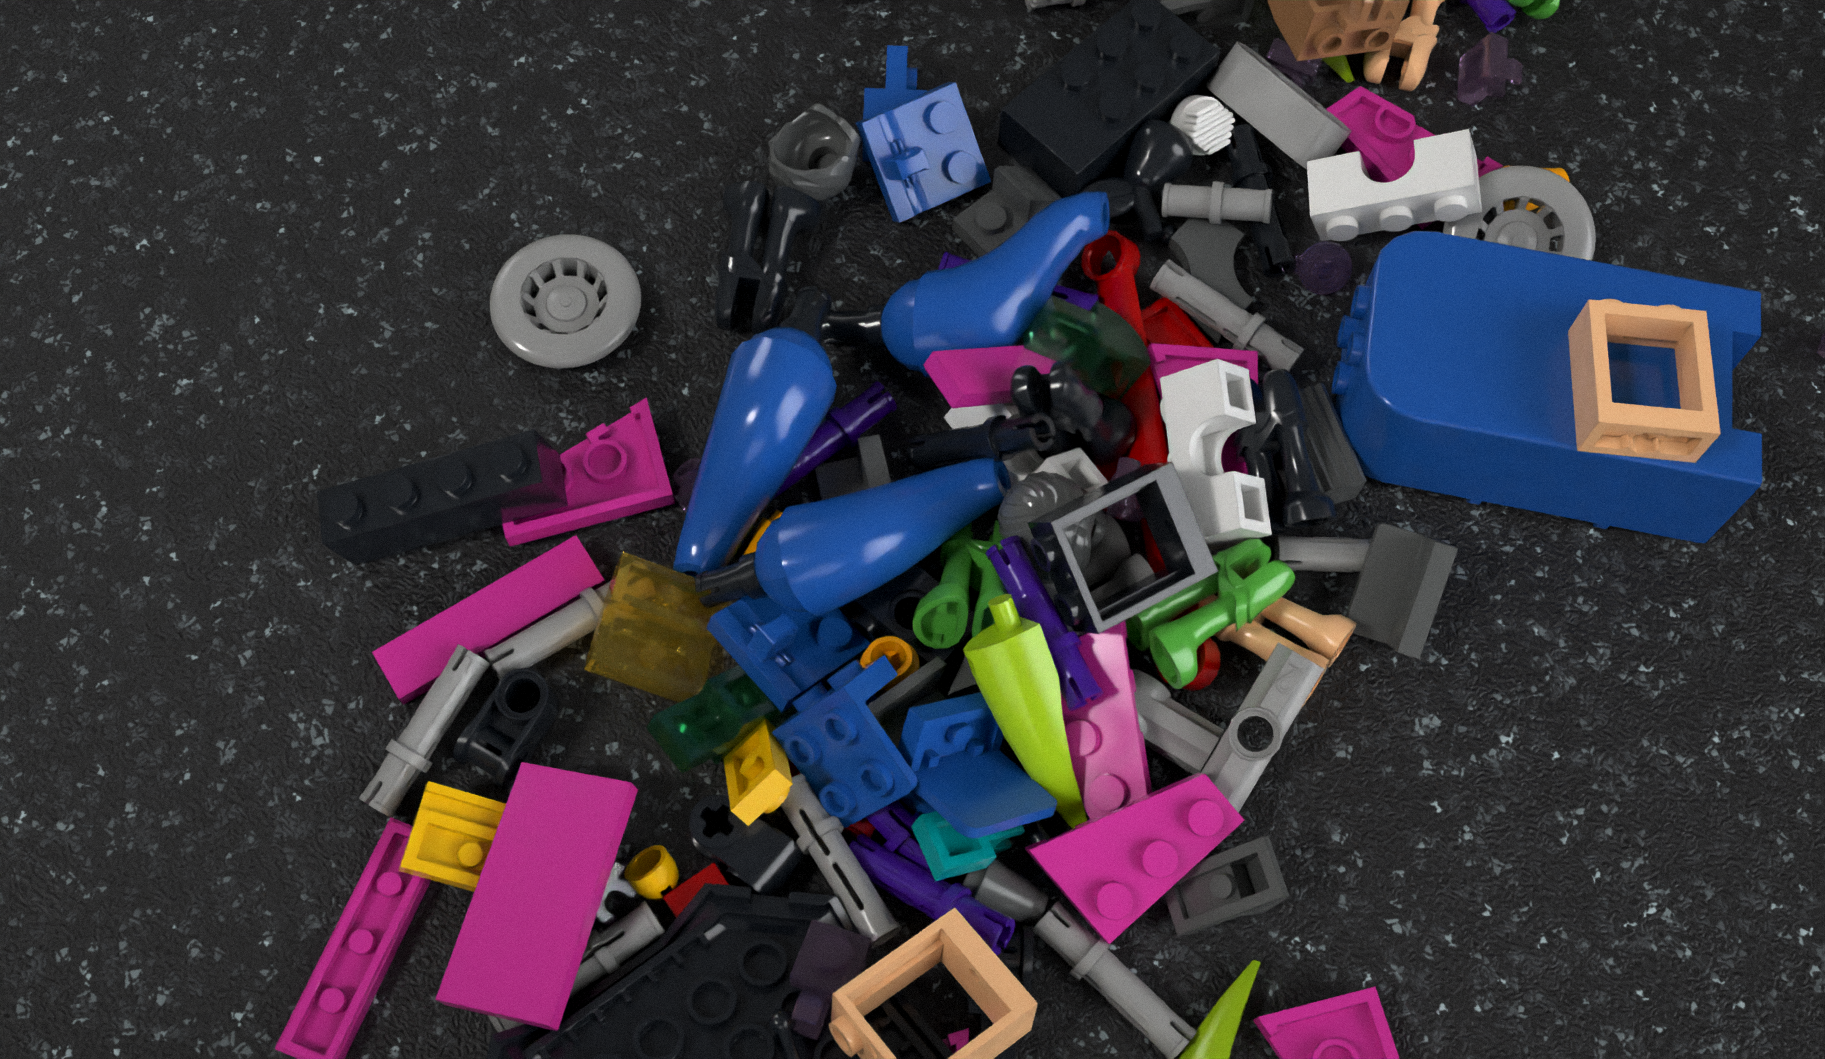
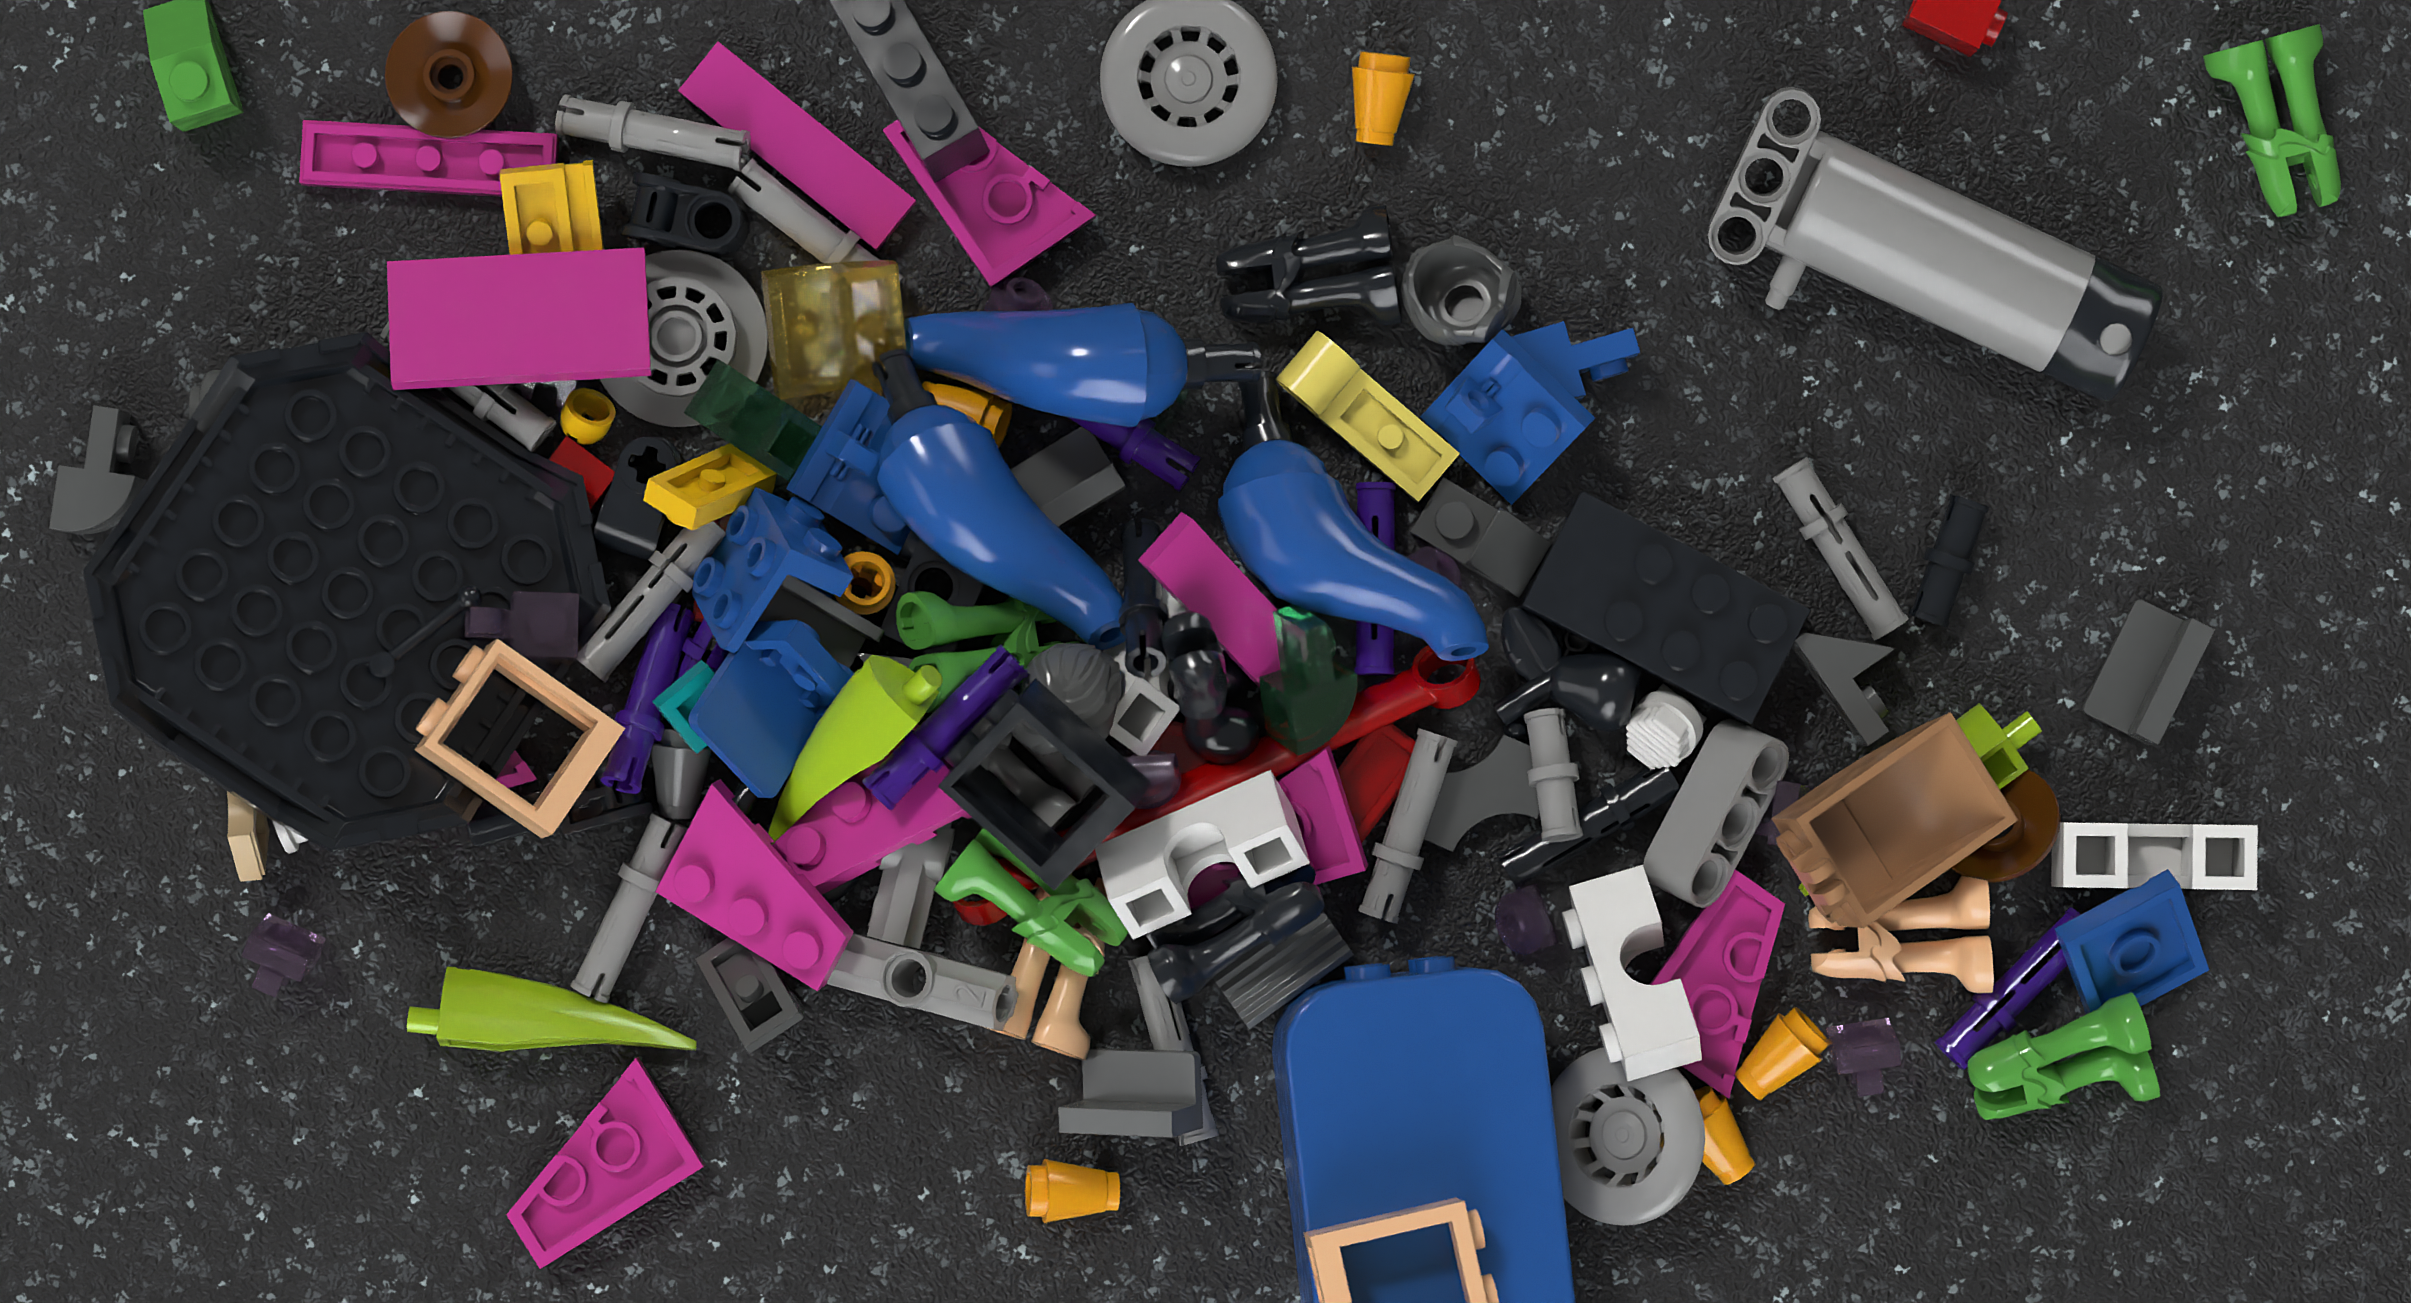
camera: 75 degrees right, 20 degrees up
(270, 878) = (429, 49): none -> reddish brown dish
(621, 758) = (686, 336): none -> light grey wheel
(637, 172) = (1380, 95): none -> light orange cone
(885, 255) = (1366, 416): none -> light yellow plate
(1466, 677) = (1069, 1191): none -> light orange cone
(1474, 112) = (1782, 1053): none -> light orange cone

